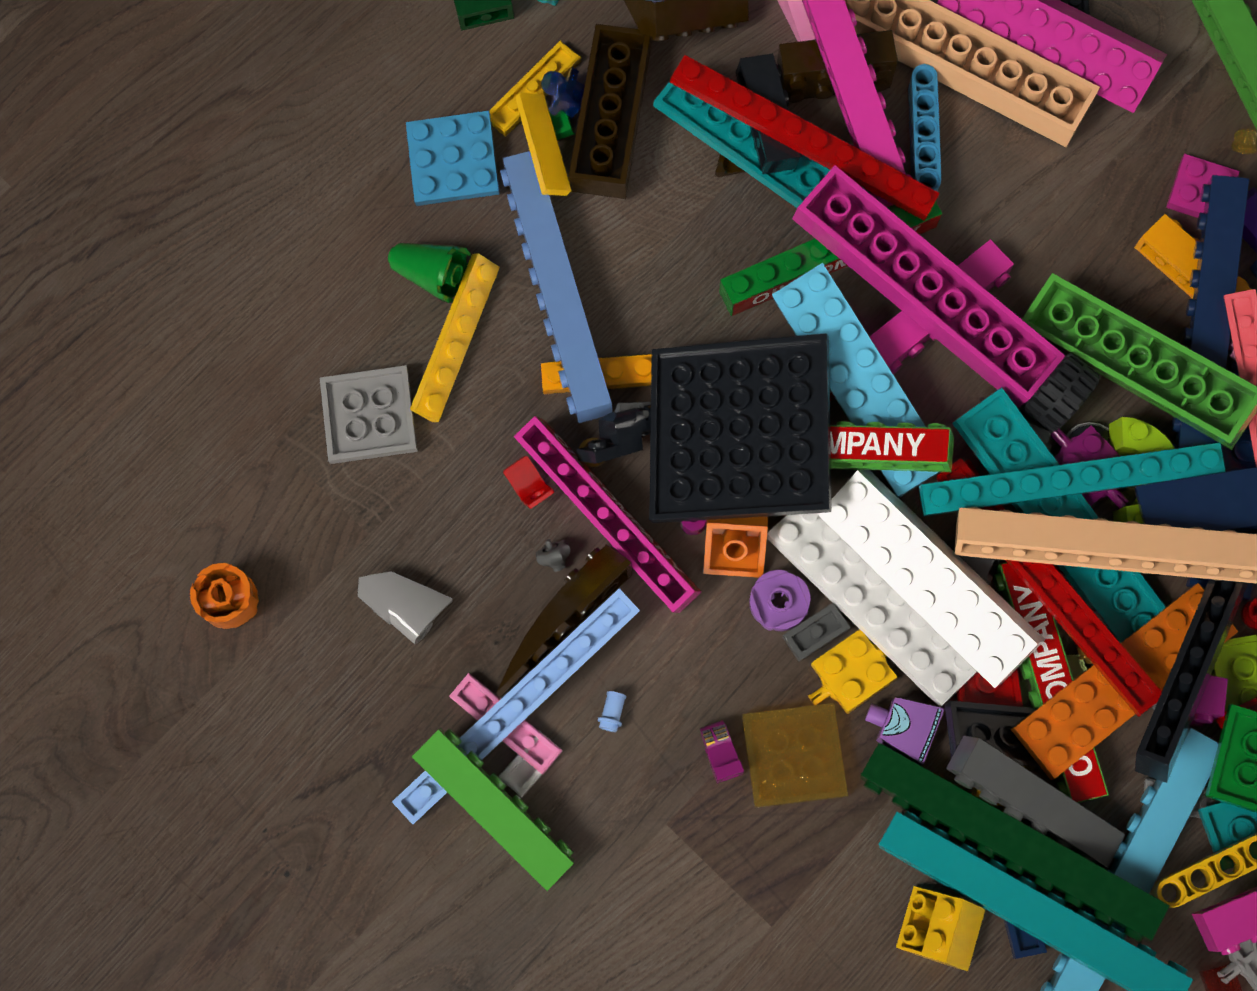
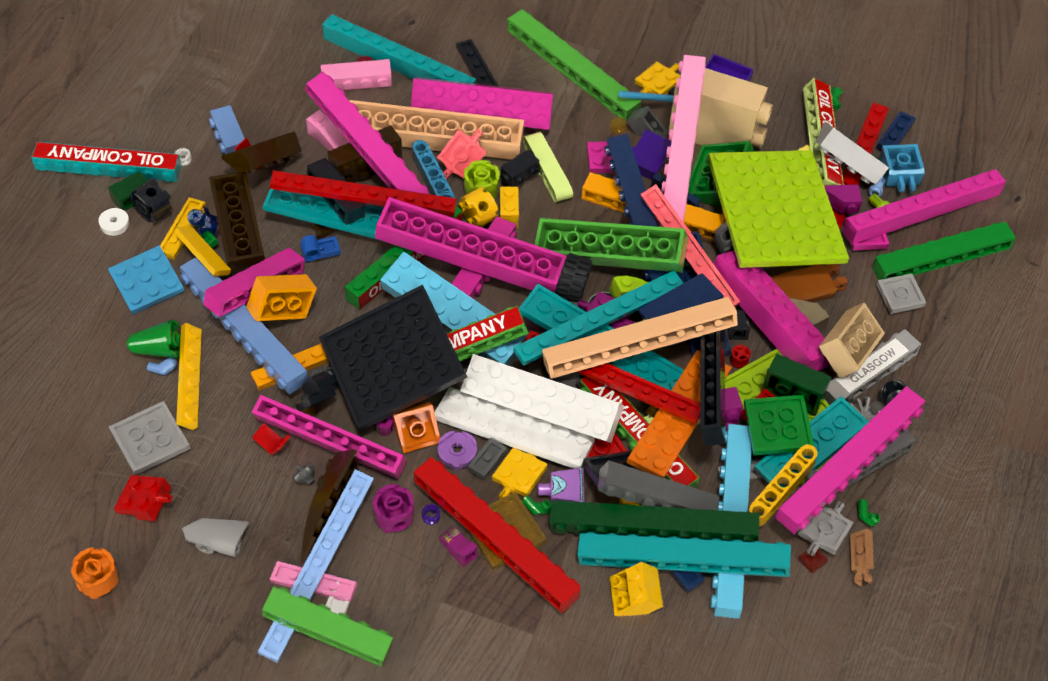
camera: 30 degrees left, 20 degrees down
(328, 504) = (143, 497): none -> red plate
(426, 310) = (162, 368): none -> medium blue arm
(443, 32) = (107, 222): none -> white piece
(501, 32) = (150, 201): none -> black brick
(594, 225) = (237, 289): none -> dark pink brick
(612, 711) = (379, 546): light blue pin -> none
(621, 267) = (281, 297): none -> light orange brick
(653, 661) = (393, 508): none -> magenta brick
(710, 679) = (434, 509): none -> dark purple bush
(711, 196) = (318, 249): none -> blue plate
(778, 766) = (497, 535): none -> red brick
(856, 737) = (537, 508): none -> green arm
(968, 216) = (478, 207): none -> yellow brick
(981, 113) = (461, 152): none -> coral plate
(993, 167) = (482, 174): none -> lime brick
(1018, 226) = (509, 204): none -> yellow brick
(1059, 167) = (519, 169): none -> black brick
(1105, 177) = (549, 168): none -> yellowish green beam

